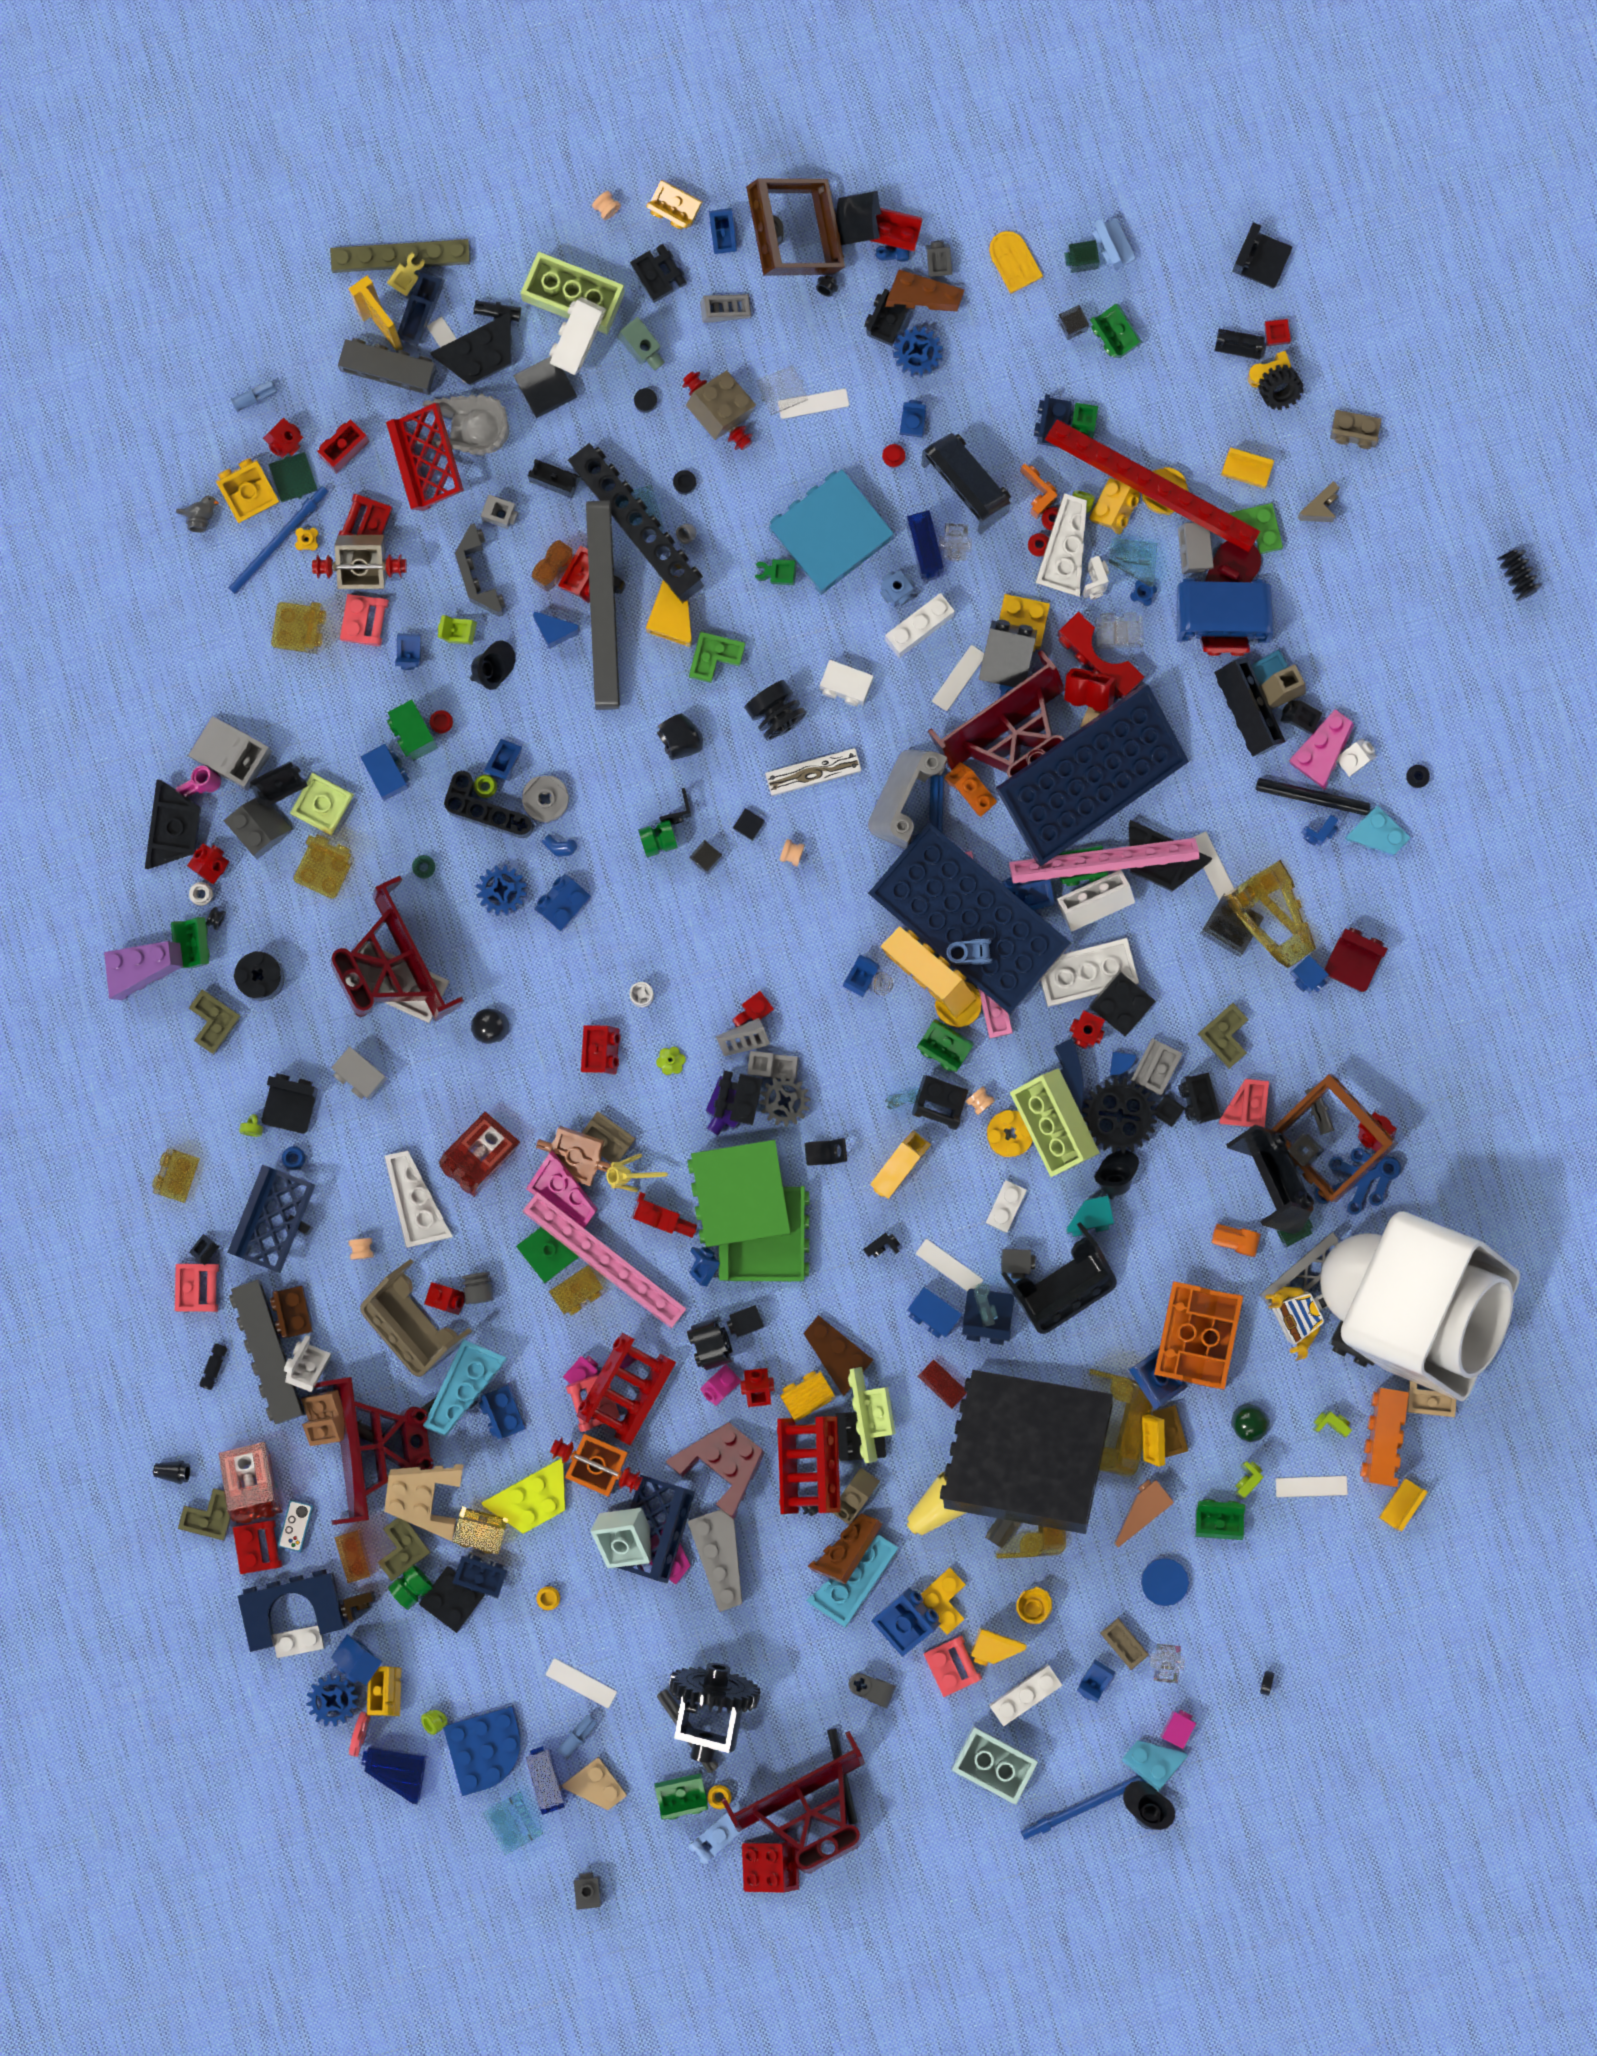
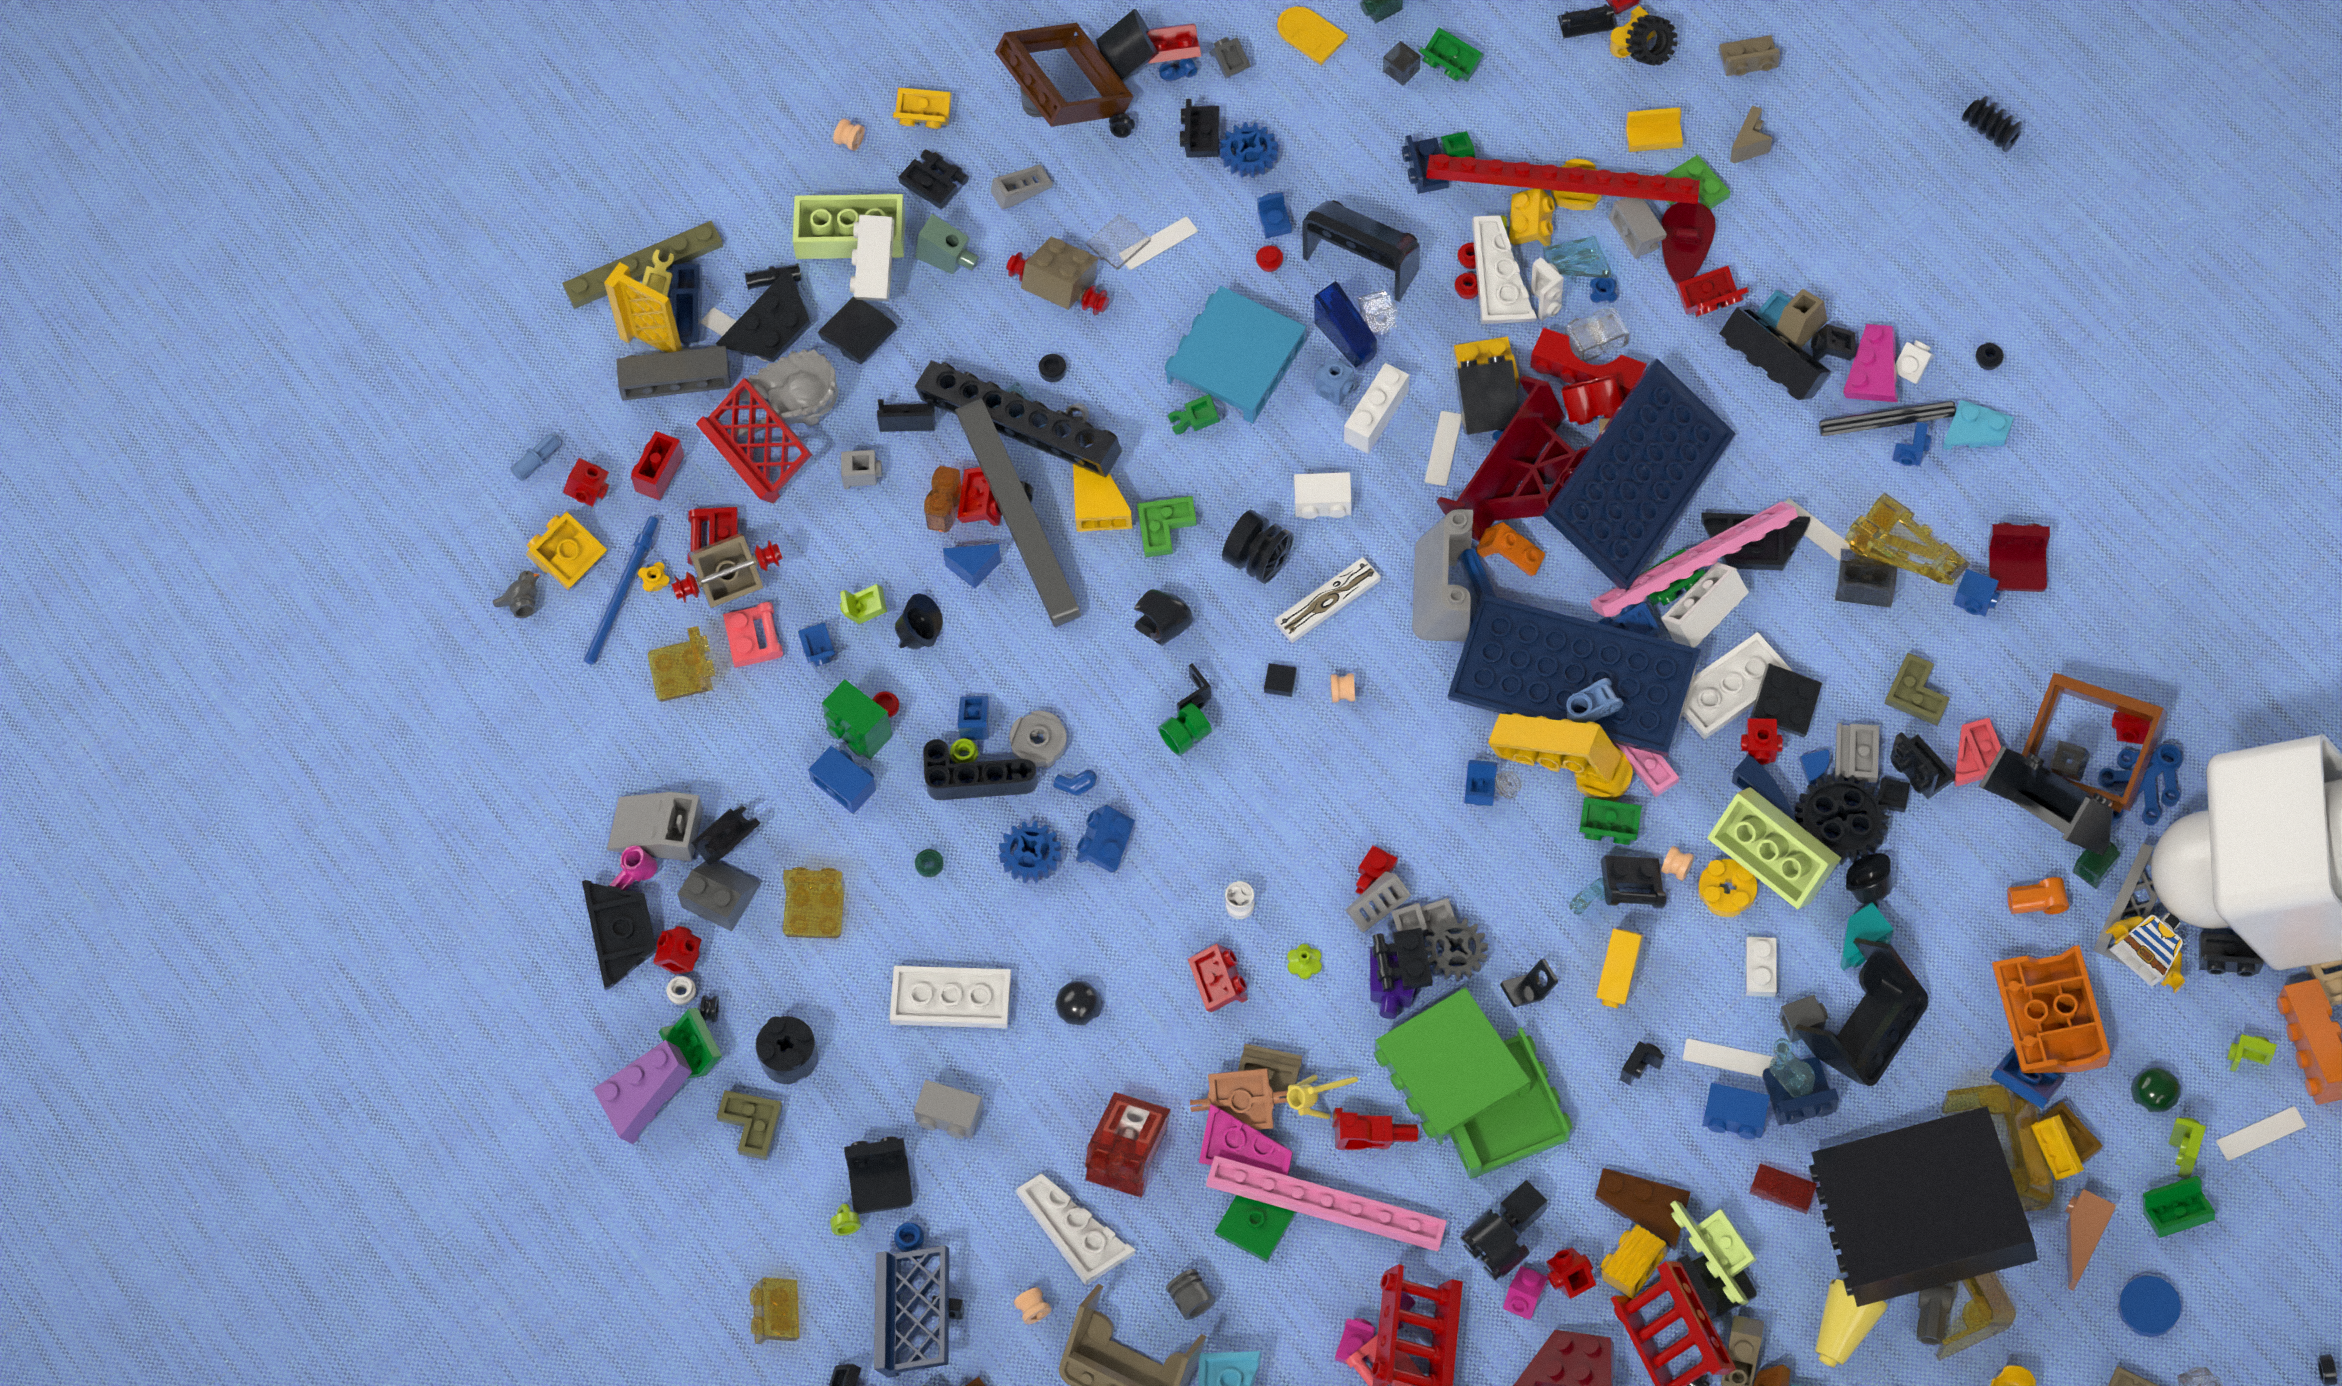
camera: 20 degrees left, 20 degrees down
(293, 477) = (612, 522): clear green piece -> none
(322, 804) = (783, 840): yellowish green plate -> none
(345, 966) = (954, 951): dark red piece -> none
(445, 1298) = (1155, 1323): red bracket -> none
(470, 544) = (884, 562): dark grey slope -> none
(576, 1291) = (1308, 1253): clear yellow bracket -> none
(645, 400) = (973, 304): black tile -> none
(704, 1266) = (1446, 1162): blue bracket -> none
(706, 857) = (1247, 729): clear smoke piece -> none
(722, 231) = (985, 111): blue slope -> none
(922, 291) = (1231, 89): dark orange wing -> none
(1041, 502) = (1450, 229): orange bracket -> none
(1224, 610) = (1698, 269): blue windscreen -> none
(1321, 1115) = (2073, 738): dark grey pin -> none

